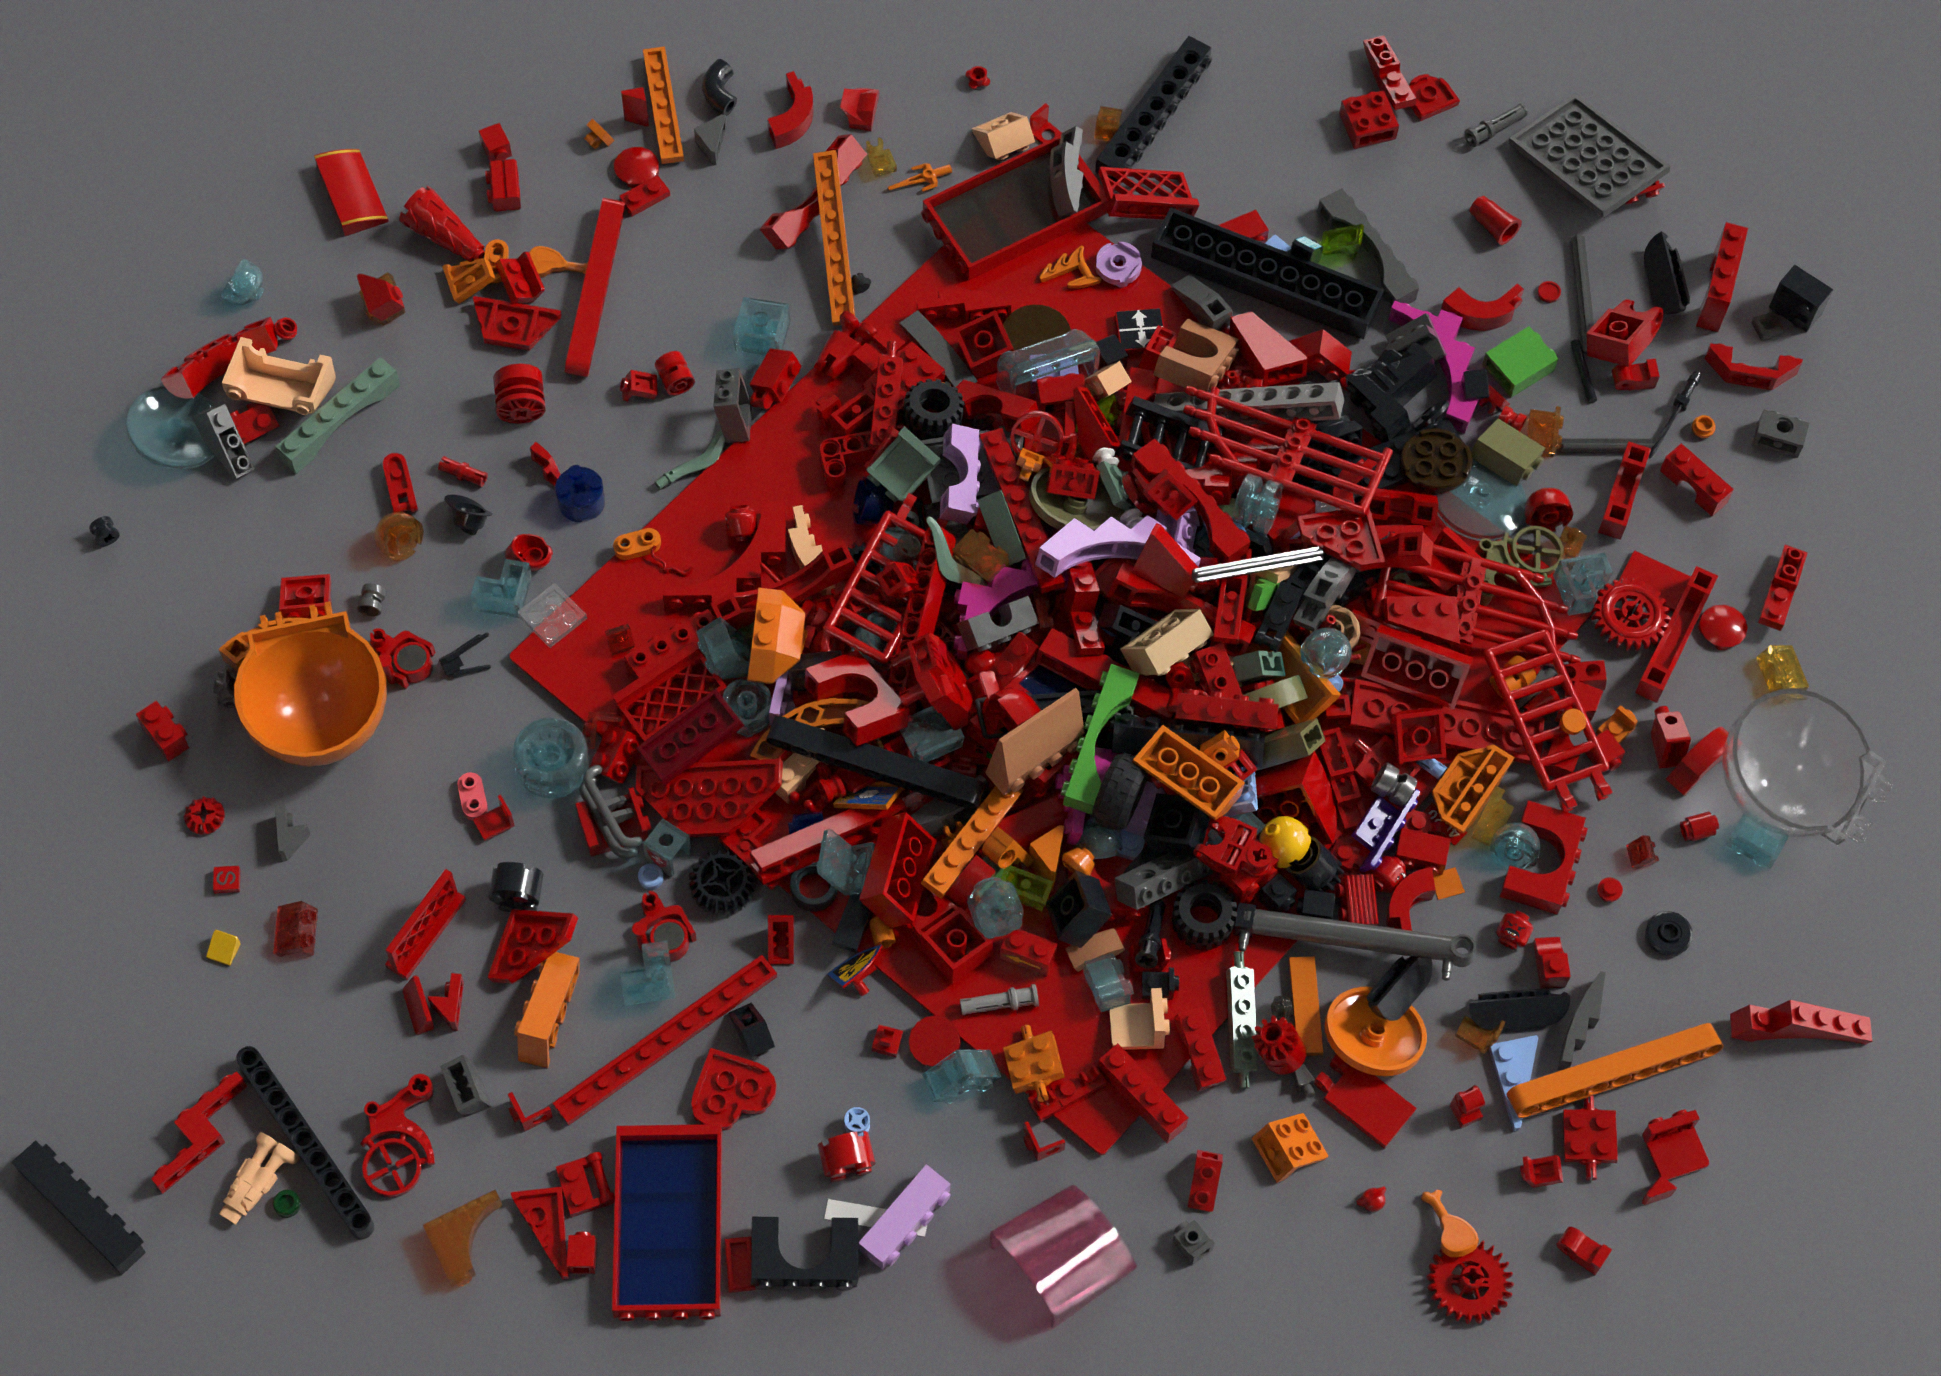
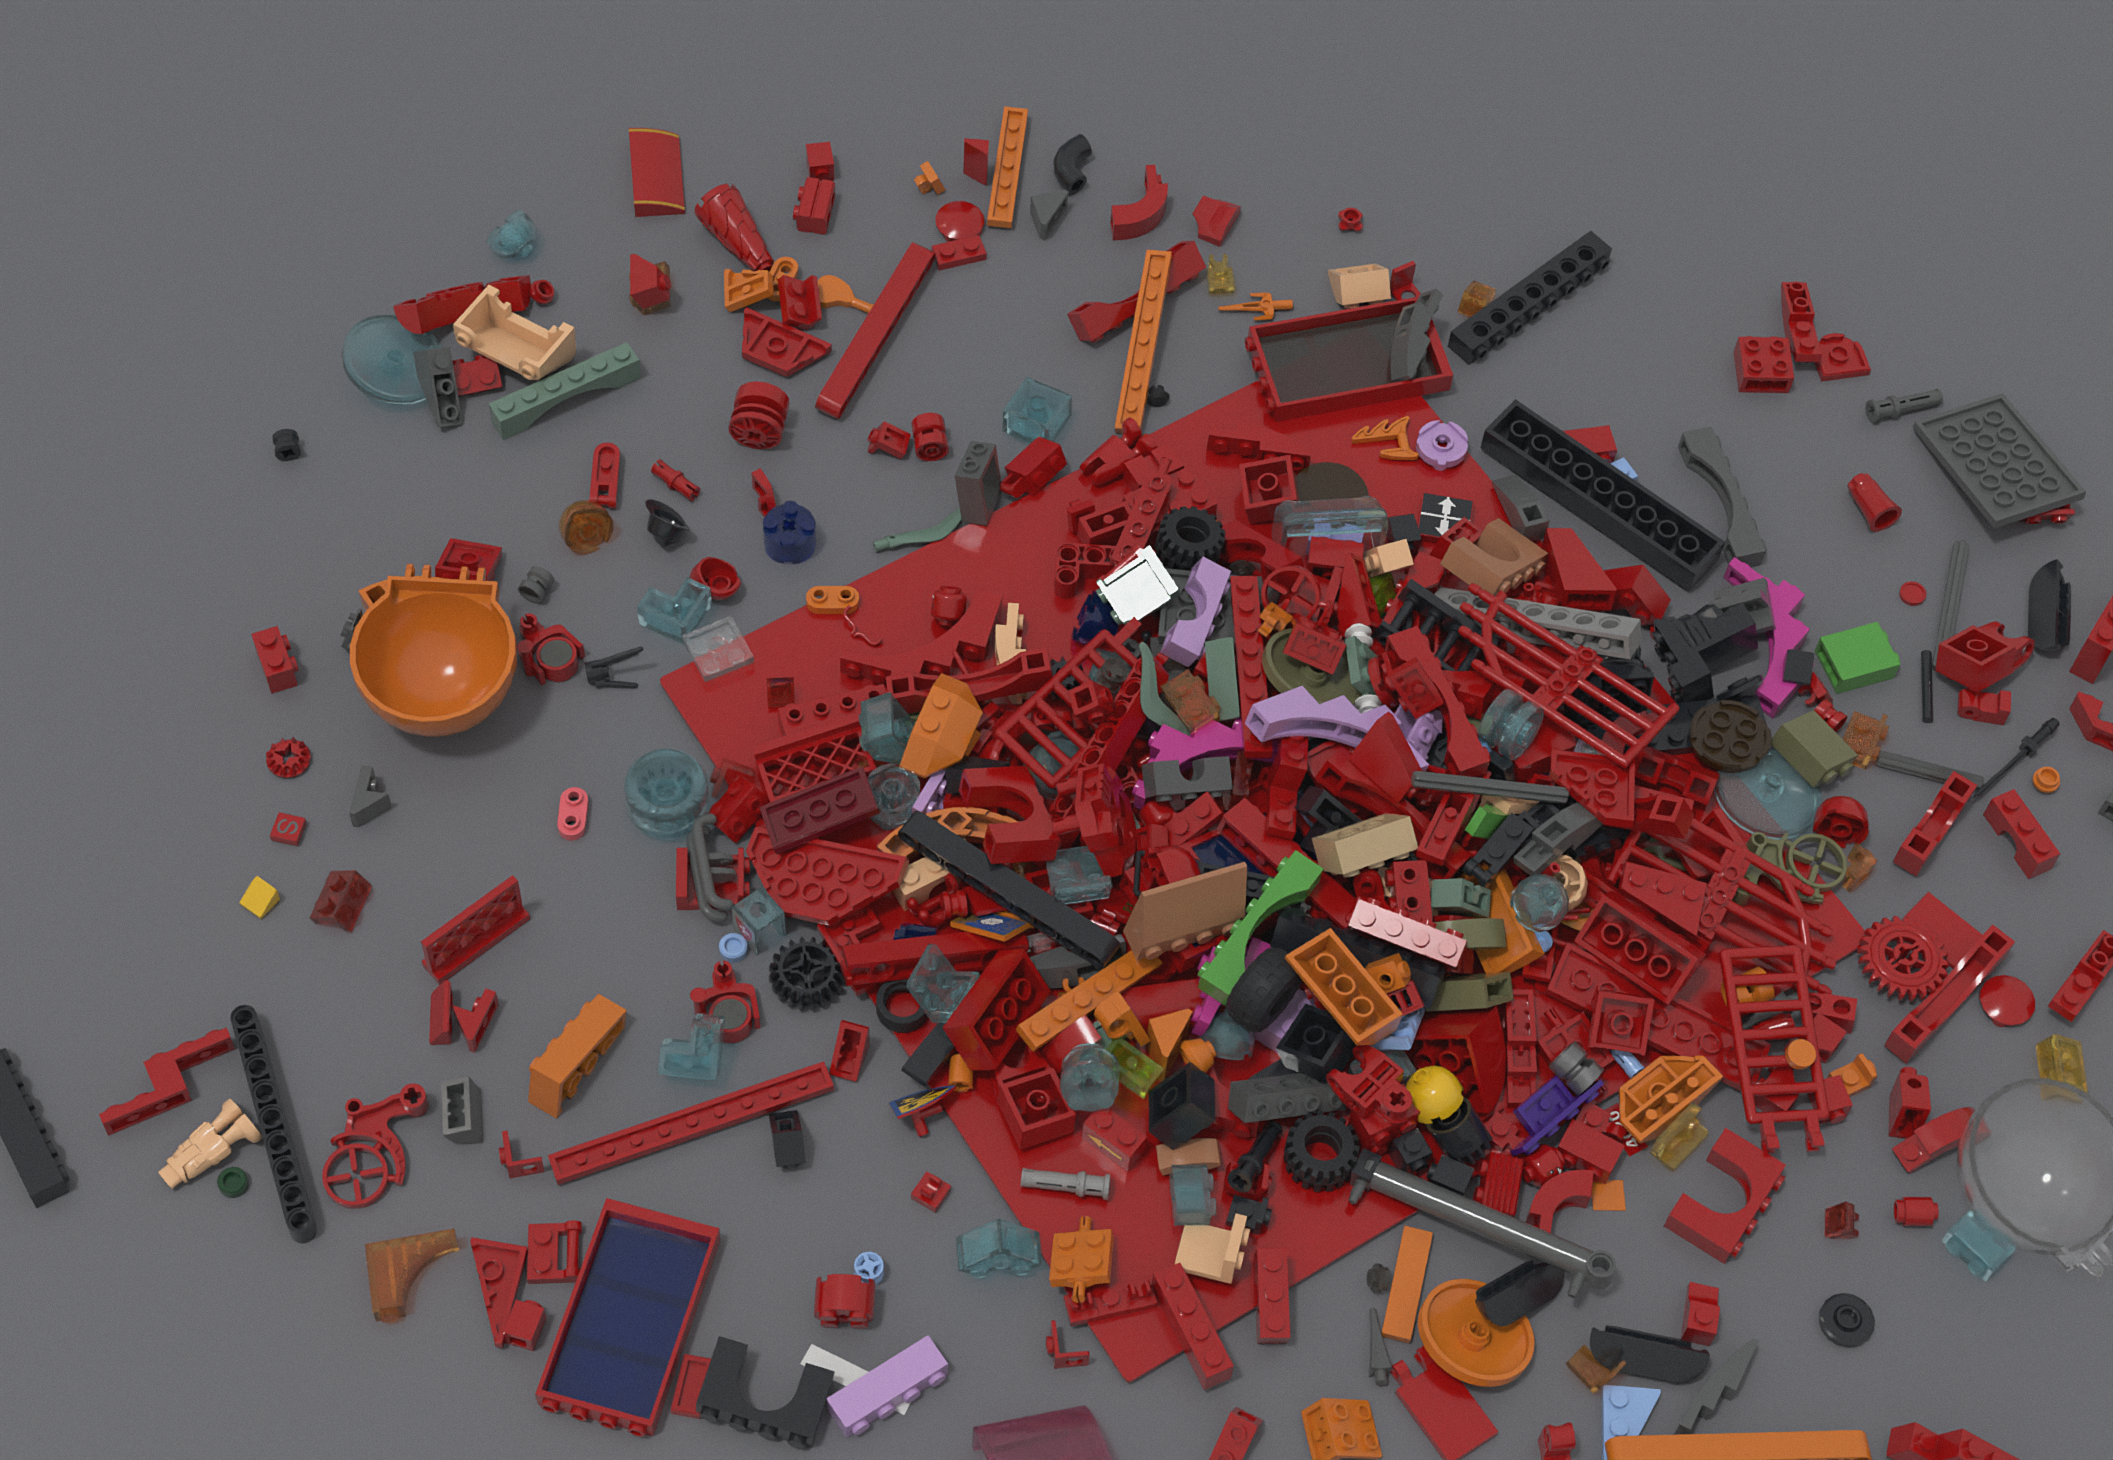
camera: 15 degrees right, 5 degrees down
(494, 821) = (586, 845): red bracket -> none
(515, 886) = (584, 917): black brick -> none
(529, 941) = (578, 978): red plate -> none
(731, 1087) = (744, 1194): red plate -> none
(932, 343) = (1215, 477): dark grey slope -> none
(933, 1040) = (980, 1202): red tile -> none
(1131, 845) = (1263, 1055): light blue plate -> none
(1147, 204) = (1491, 390): red fence -> none
(1241, 1019) = (1329, 1279): sand green plate -> none
(1279, 1046) = (1362, 1317): red gear -> none
(1307, 249) = (1653, 479): black slope -> none
(1343, 240) = (1696, 481): clear neon green slope -> none
(1480, 314) = (1831, 598): red arch -> none
(1514, 930) = (1668, 1266): red head -> none
(1515, 846) = (1697, 1174): clear light blue cylinder -> none
(1579, 580) = (1855, 904): clear light blue brick -> none
(1609, 889) = (1792, 1252): red plate -> none

